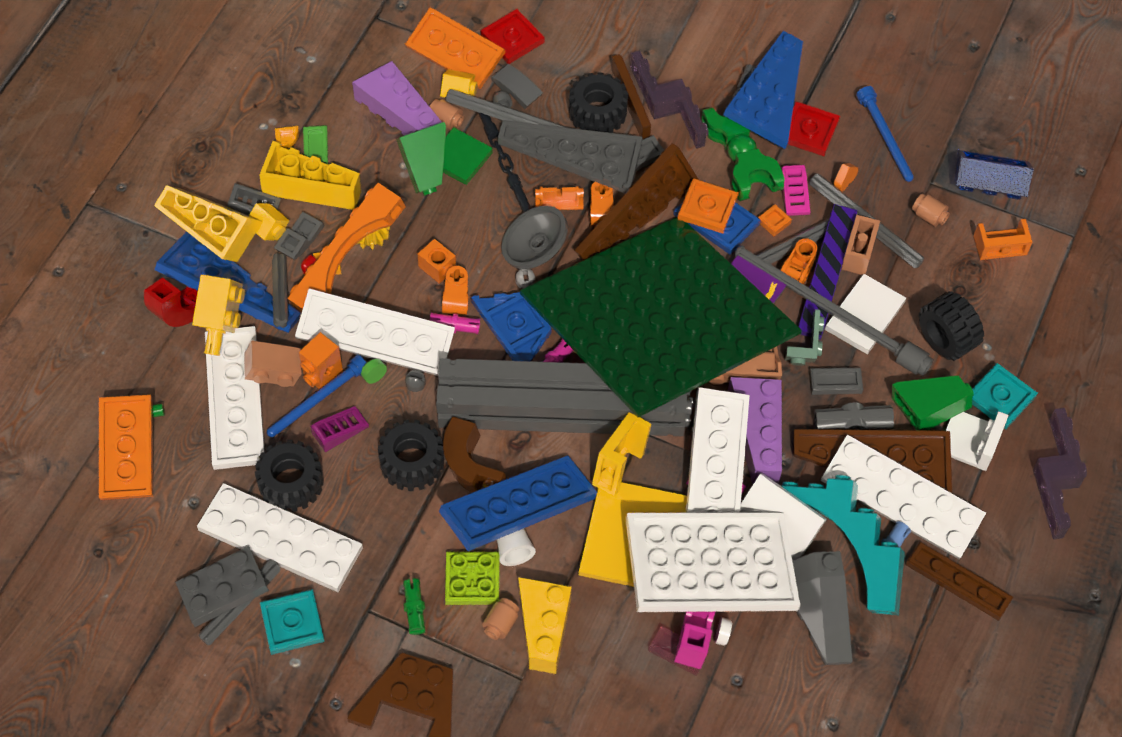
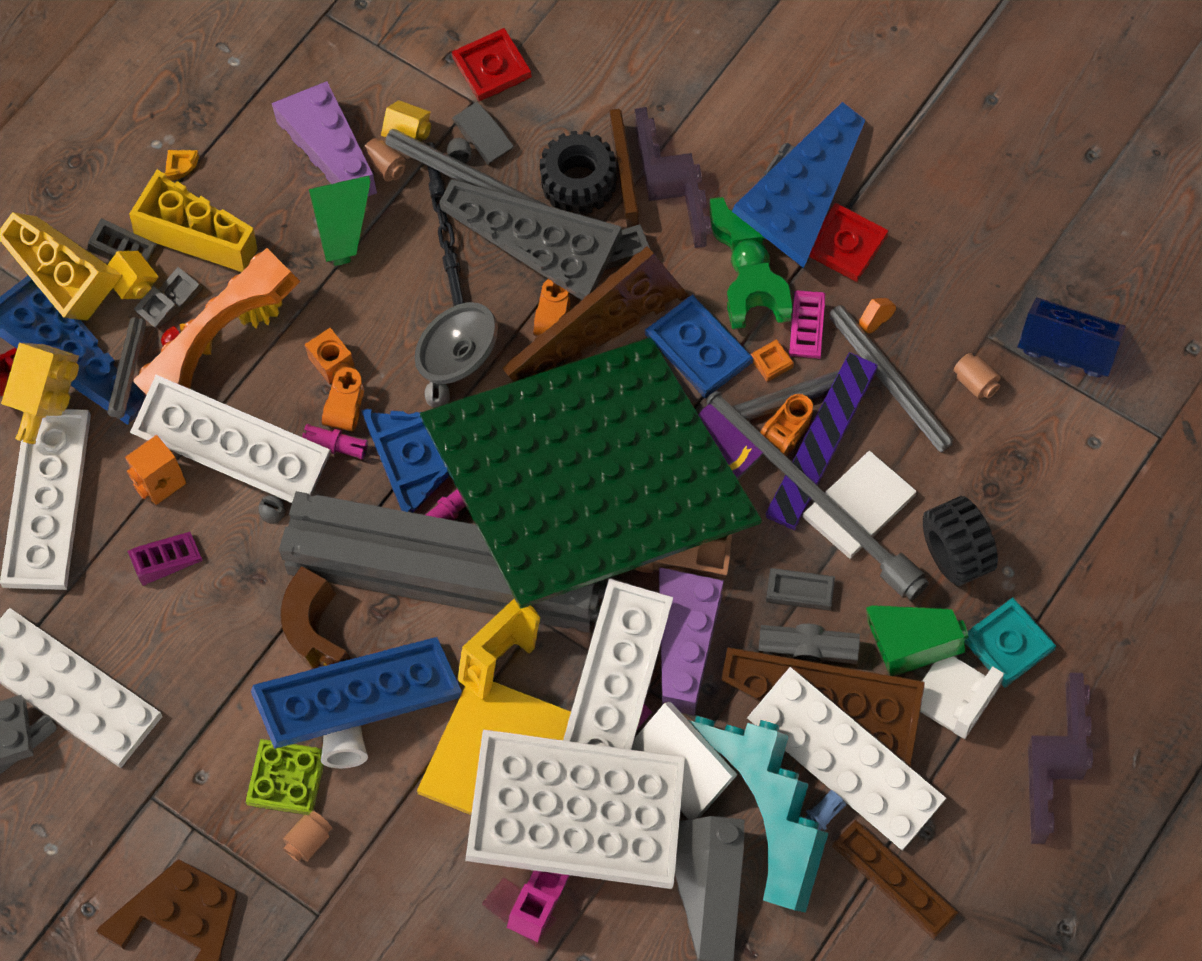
camera: 15 degrees right, 5 degrees up
(272, 363) = (96, 464): nougat brick -> none
(289, 457) = (74, 592): black tyre -> none
(291, 622) = (55, 798): teal plate -> none
(316, 142) = (215, 178): bright green tile -> none
(353, 369) = (200, 483): blue piece -> none
(373, 371) = (221, 489): bright green tile -> none
(411, 437) = (233, 585): black tyre -> none
(414, 607) = (206, 802): green pin -> none
(454, 46) = (414, 70): orange tile -> none
(464, 155) = (393, 218): green tile -> none
(544, 620) = (358, 850): yellow wedge -> none
(563, 199) = (502, 293): orange hinge -> none
(708, 206) = (687, 330): orange tile -> none
(723, 631) = (578, 897): white tile -> none
(799, 355) = (759, 550): sand green bracket -> none
(860, 245) = (871, 412): nougat brick -> none
(867, 97) = (932, 209): blue piece -> none
(1004, 242) = (1062, 433): orange panel -> none

